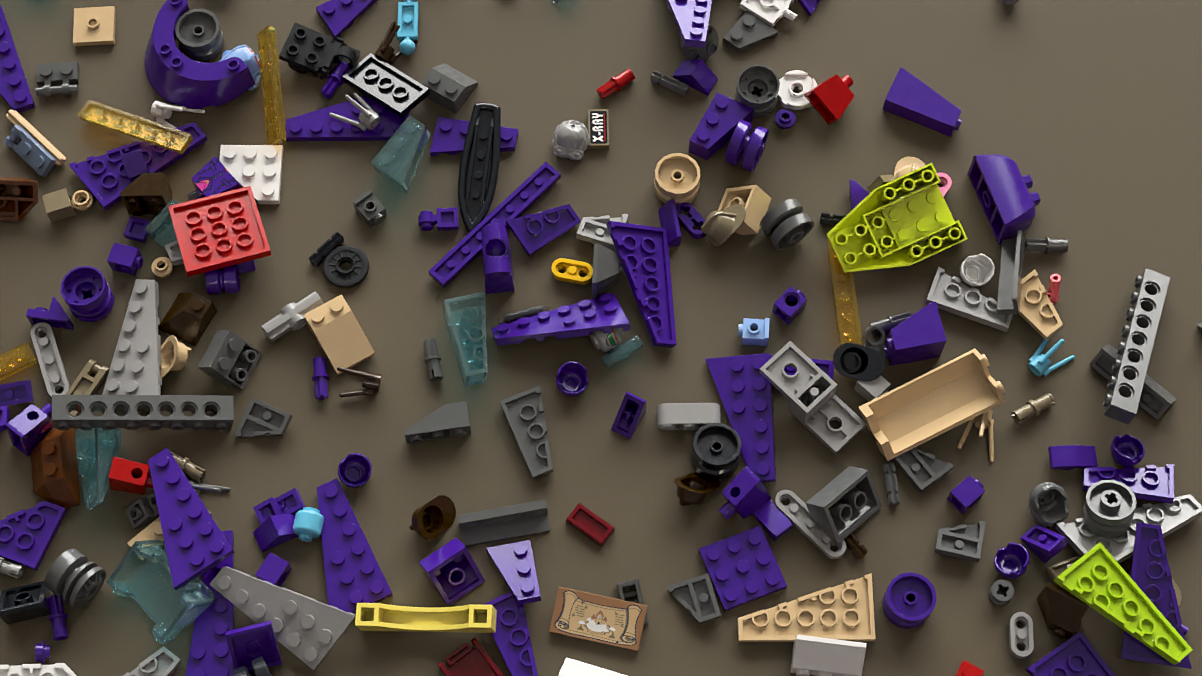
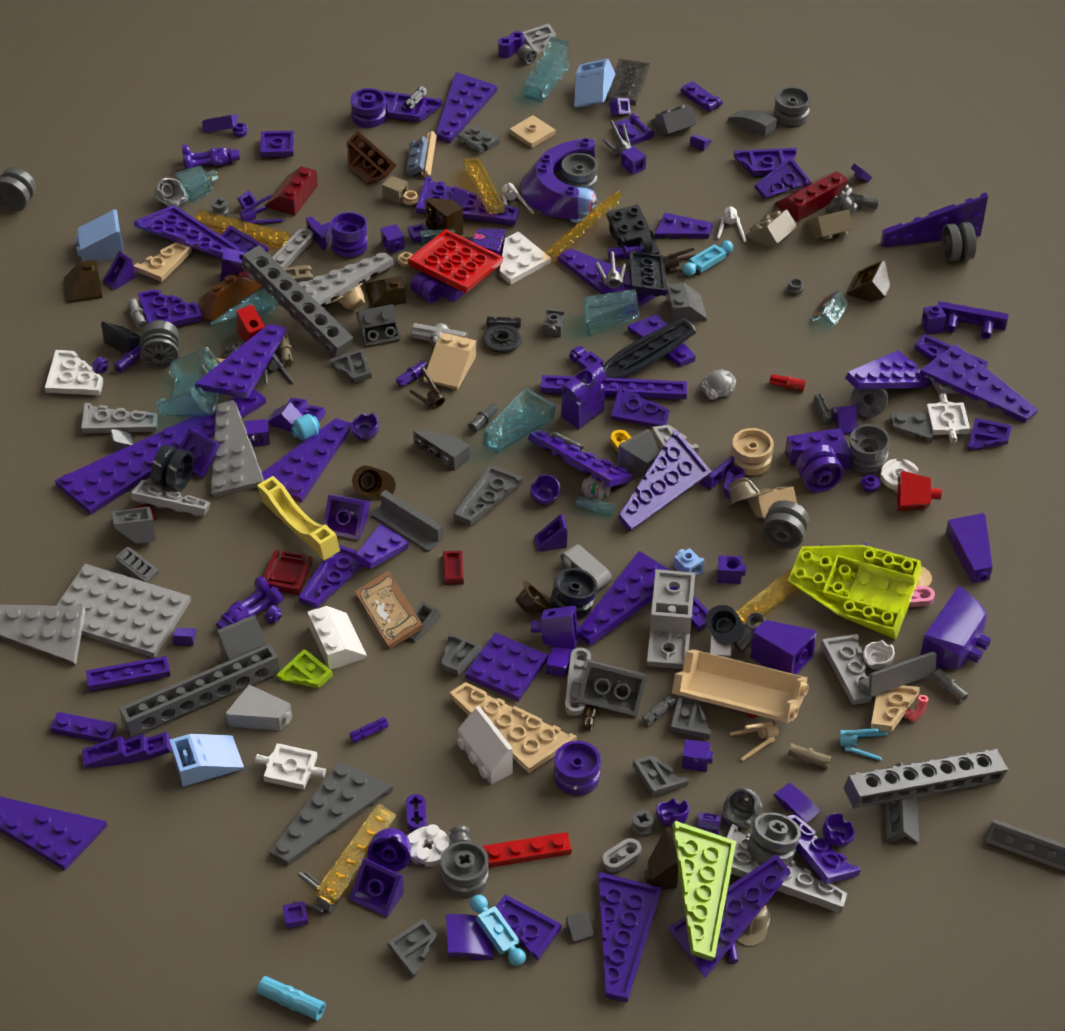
camera: 50 degrees right, 20 degrees down
(598, 128) = (744, 395): tile -> none

